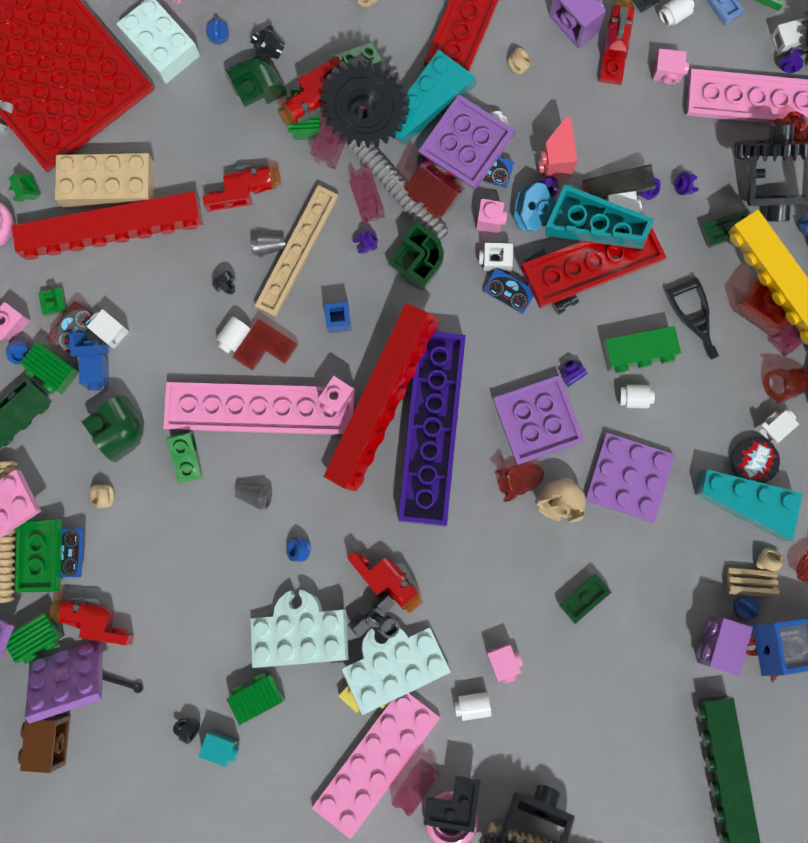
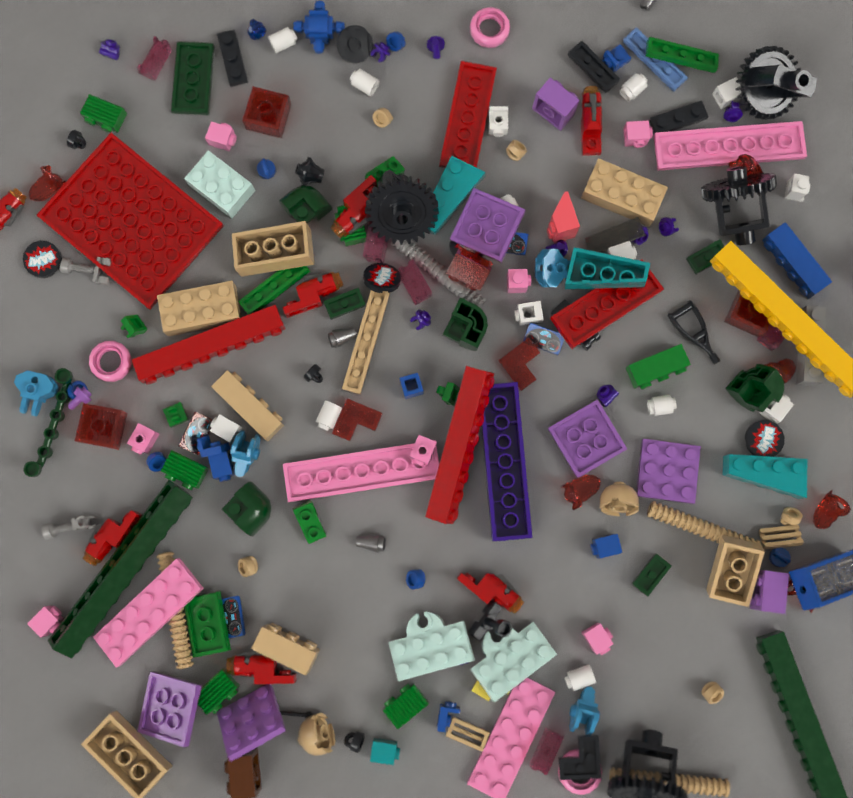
camera: 15 degrees left, 0 degrees up
(122, 359) = (244, 452): none -> dark azure hinge
(125, 602) = (286, 648): none -> tan brick
(139, 306) = (247, 405): none -> tan brick
(141, 713) = (316, 735): none -> tan cylinder
(199, 170) = (272, 288): none -> green plate
(204, 125) = (272, 248): none -> tan brick
(278, 206) = (344, 303): none -> dark green plate
(298, 723) = (443, 717): none -> blue bracket
(328, 182) = (381, 277): none -> tile
(336, 767) = (483, 740): none -> tan tile
(380, 334) = (449, 394): none -> green tile
(469, 315) = (516, 362): none -> clear red plate
(470, 748) = (584, 712): none -> dark azure hinge
(504, 22) = (498, 113): none -> white brick
(536, 553) = (606, 546): none -> blue brick
(632, 755) = (712, 692): none -> tan tile
(639, 132) = (624, 192): none -> tan brick
(660, 555) = (692, 524): none -> tan piece
(687, 612) = (735, 570): none -> tan brick
(725, 57) = (679, 118): none -> black plate
(757, 395) = (757, 387): none -> dark green brick

